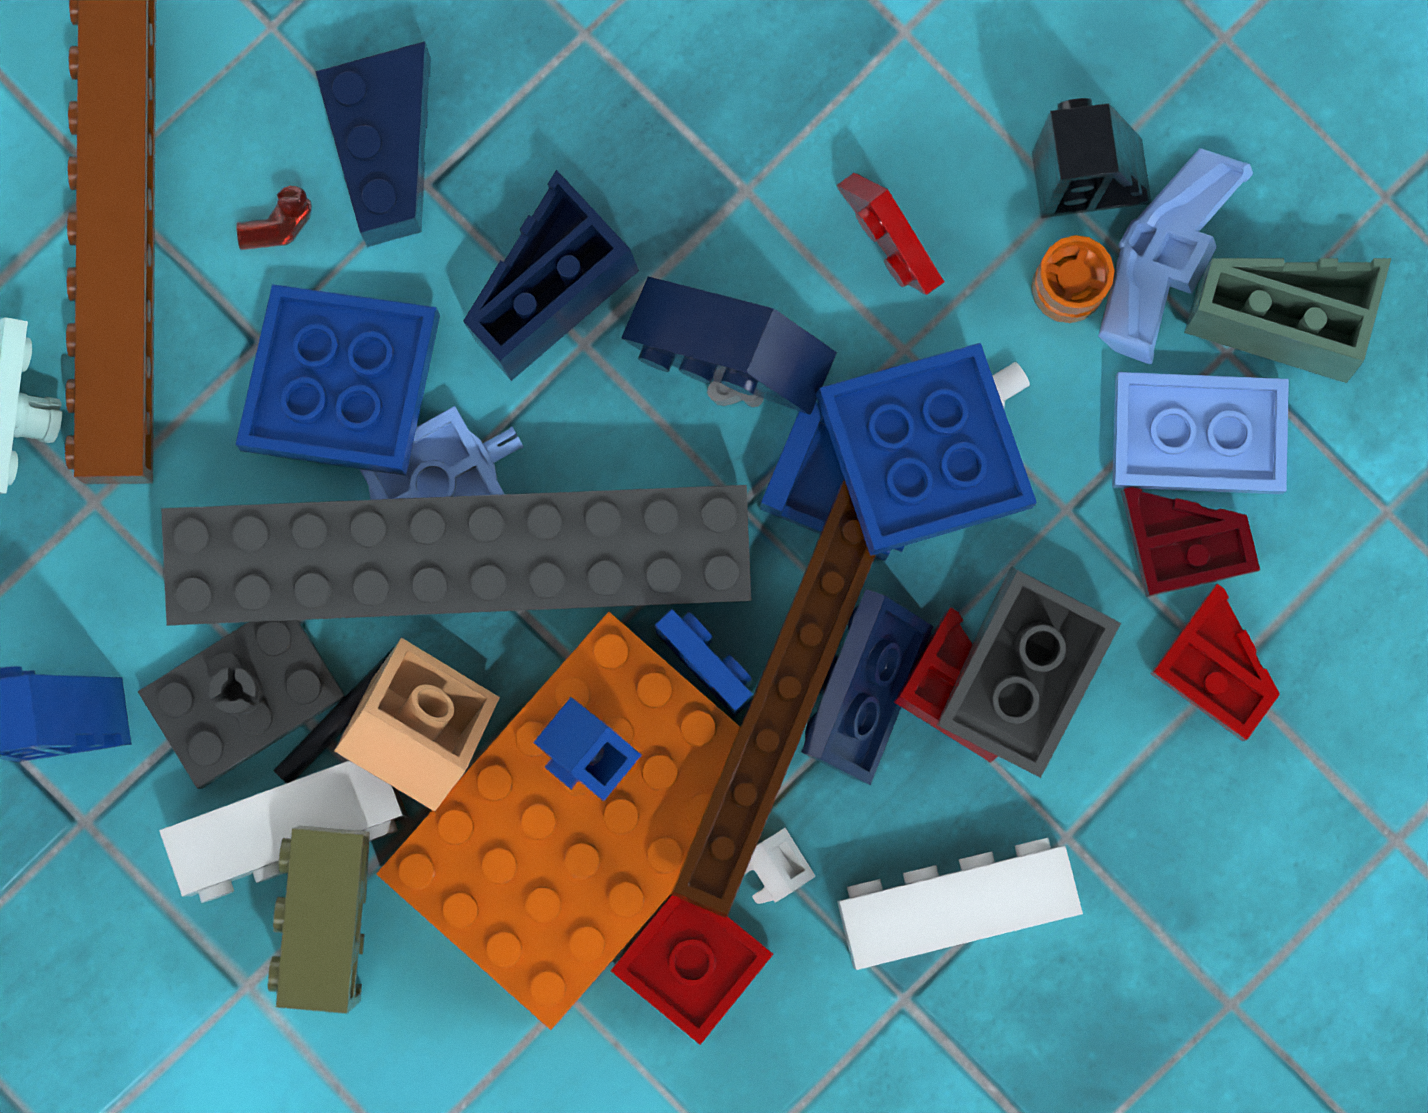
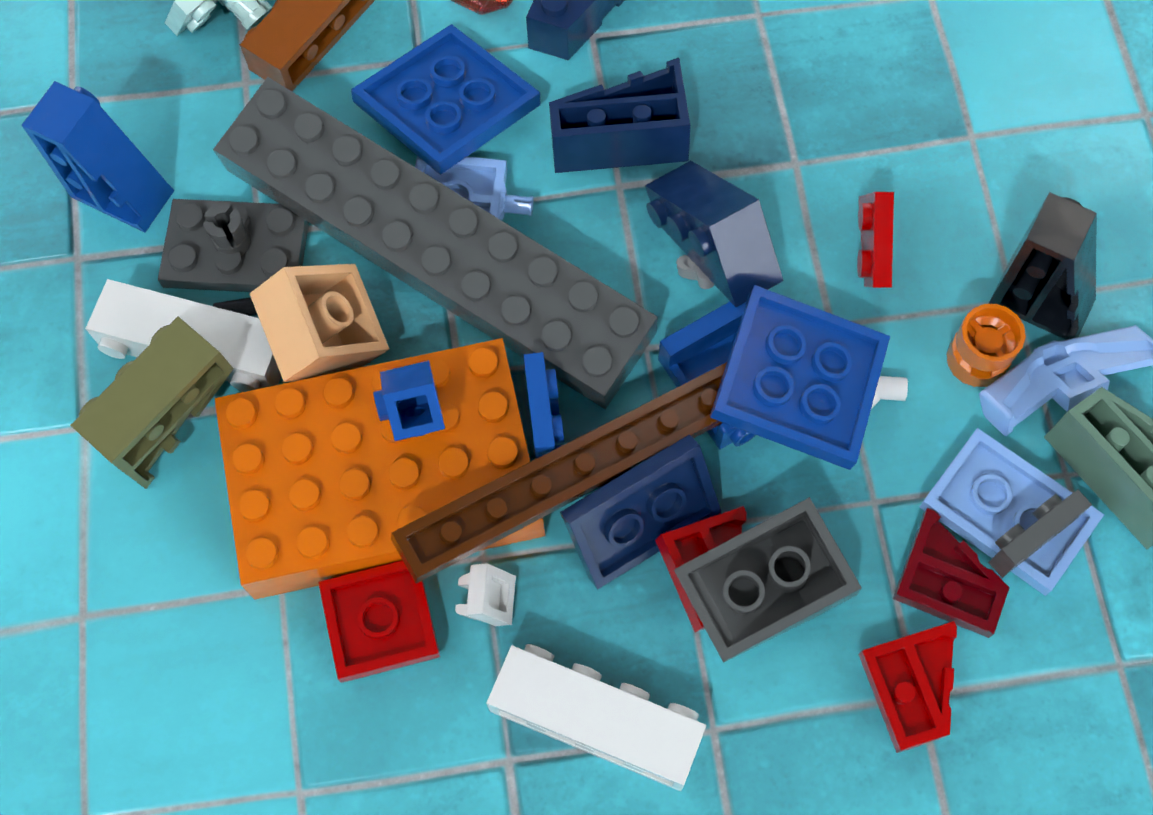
camera: 40 degrees right, 15 degrees down
(1248, 424) = (1052, 518): none -> dark grey plate

